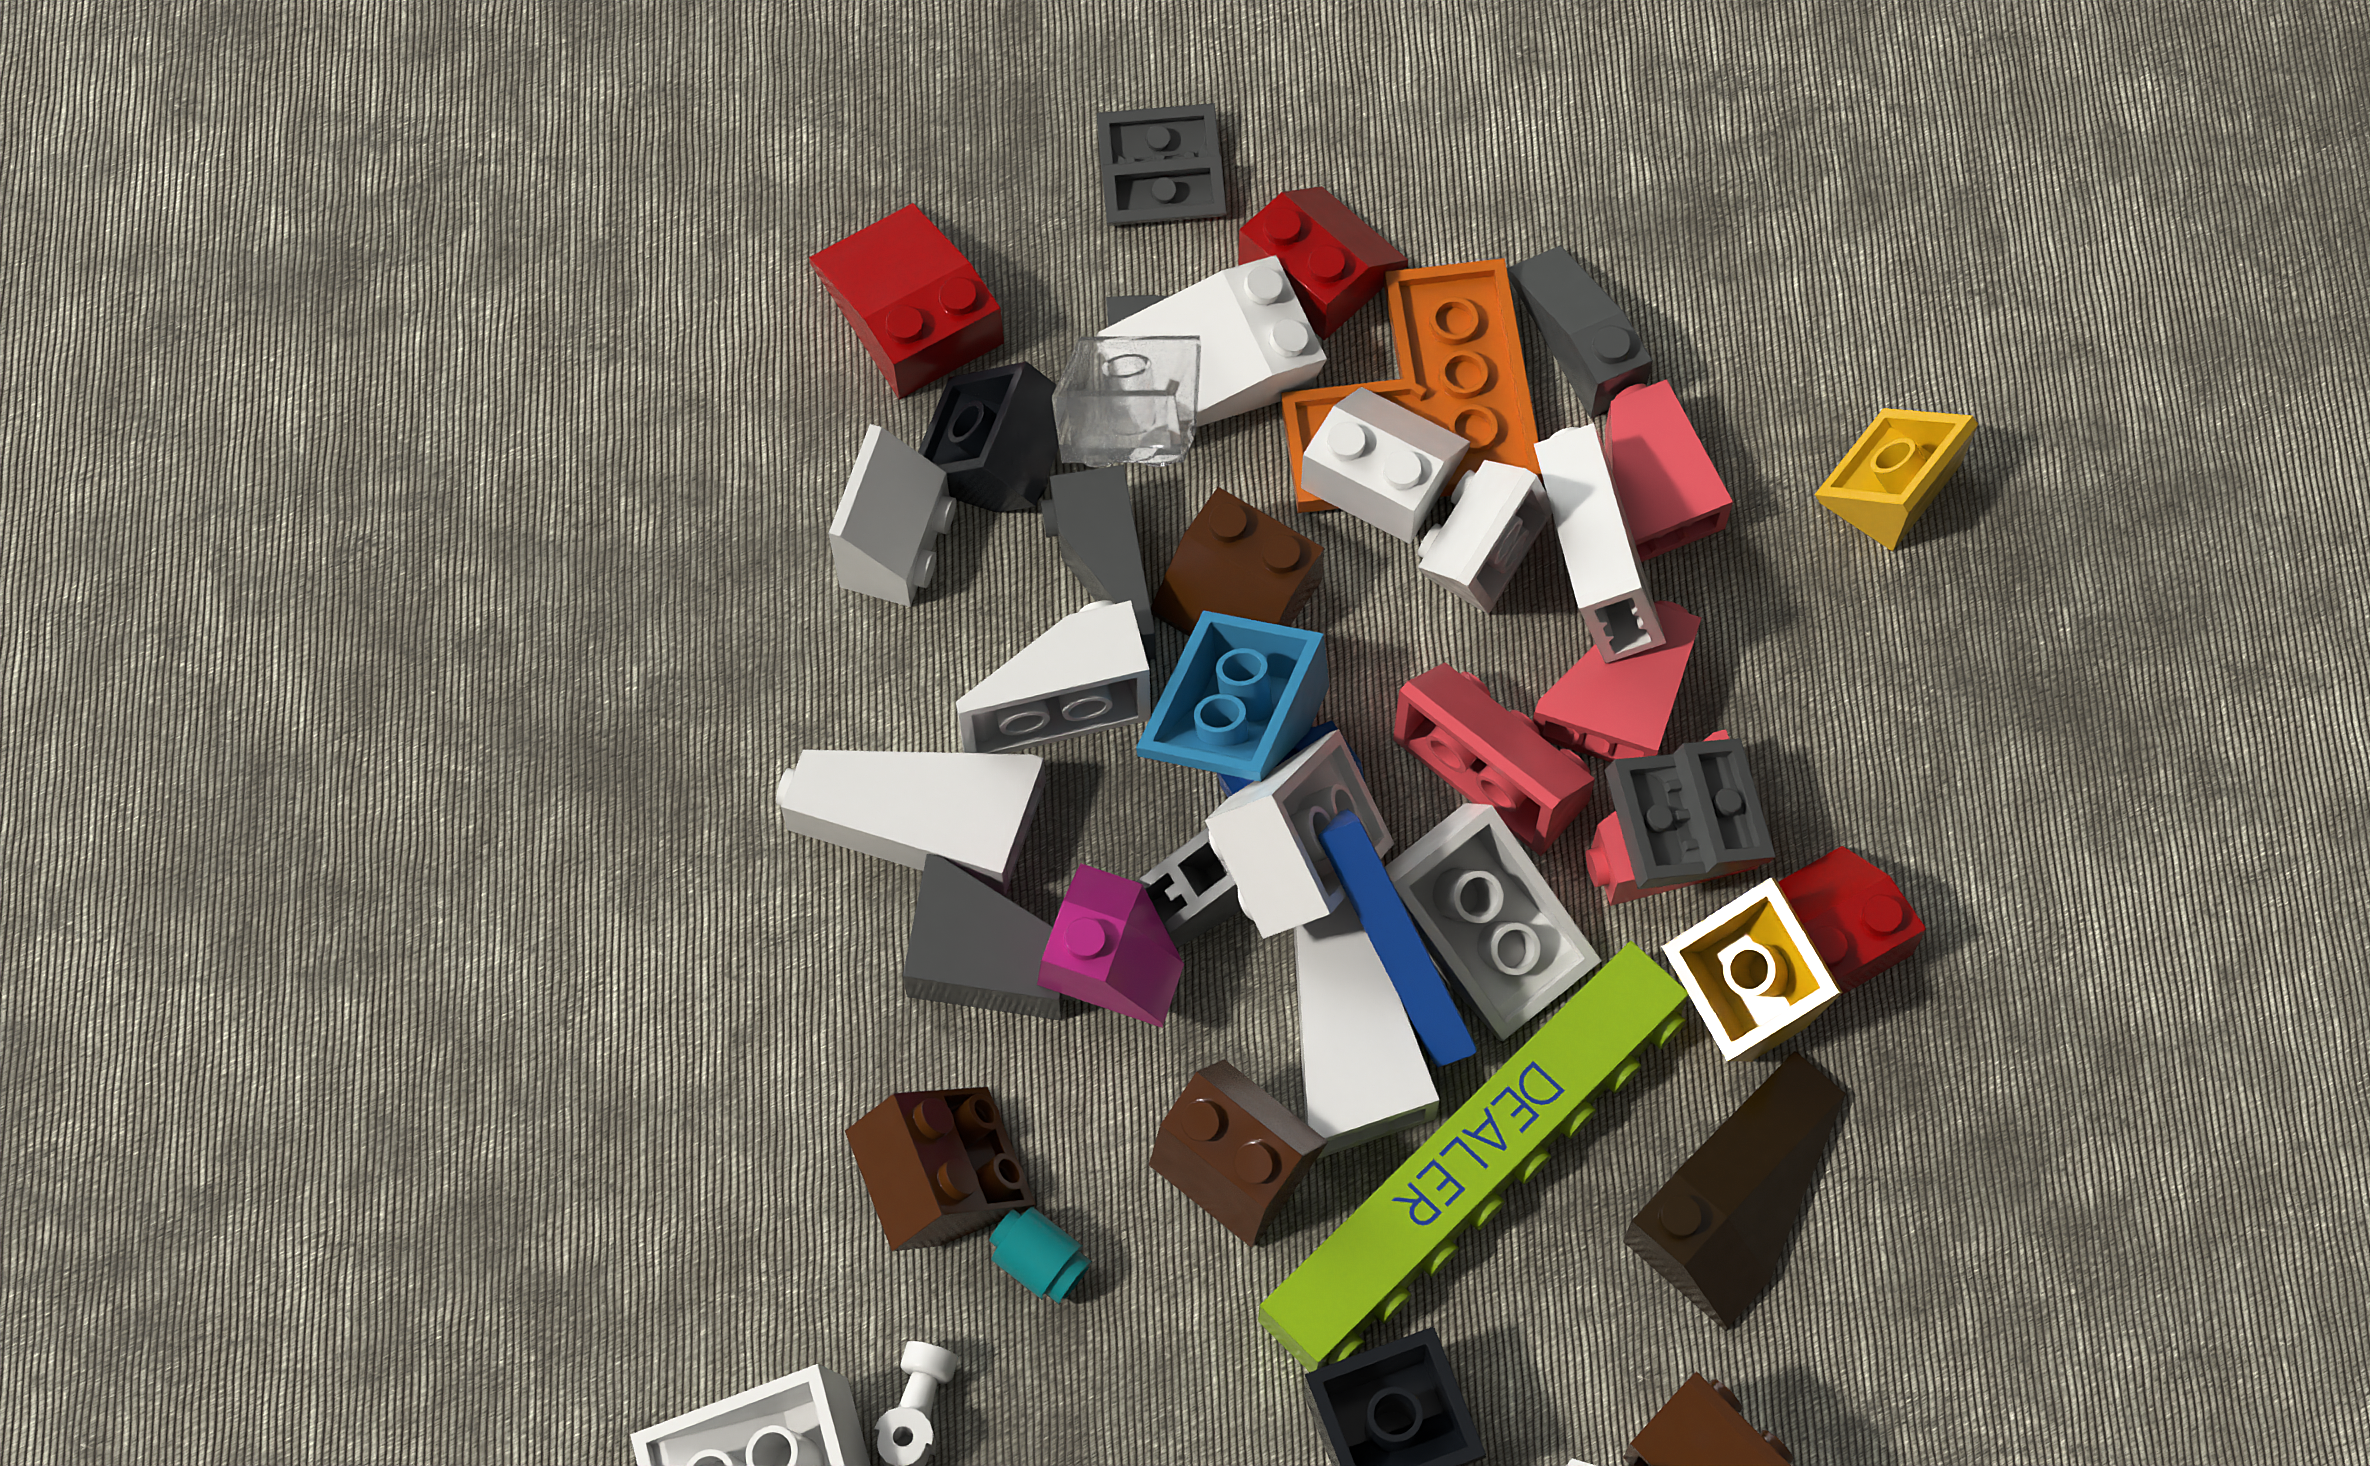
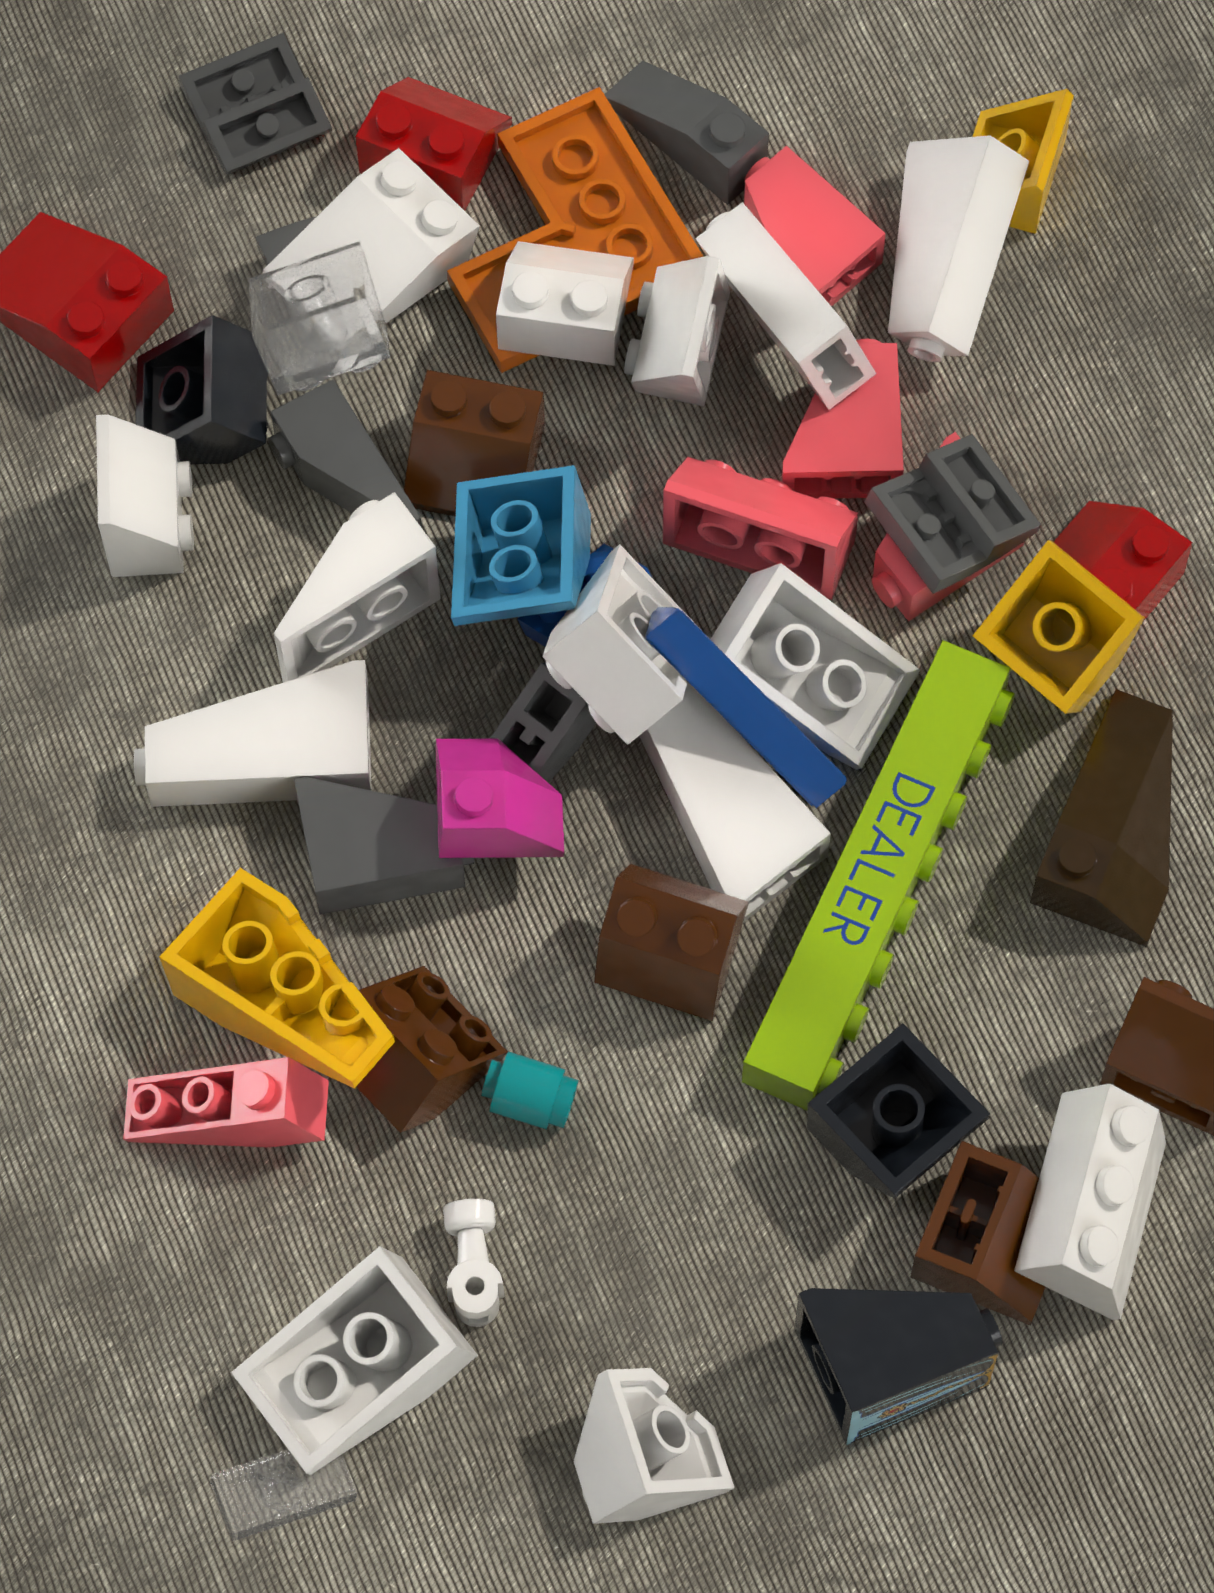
camera: 20 degrees left, 0 degrees up
(739, 1161) = (229, 1106): none -> coral slope
(824, 1053) = (271, 981): none -> yellow wedge
(1797, 531) = (950, 240): none -> white slope

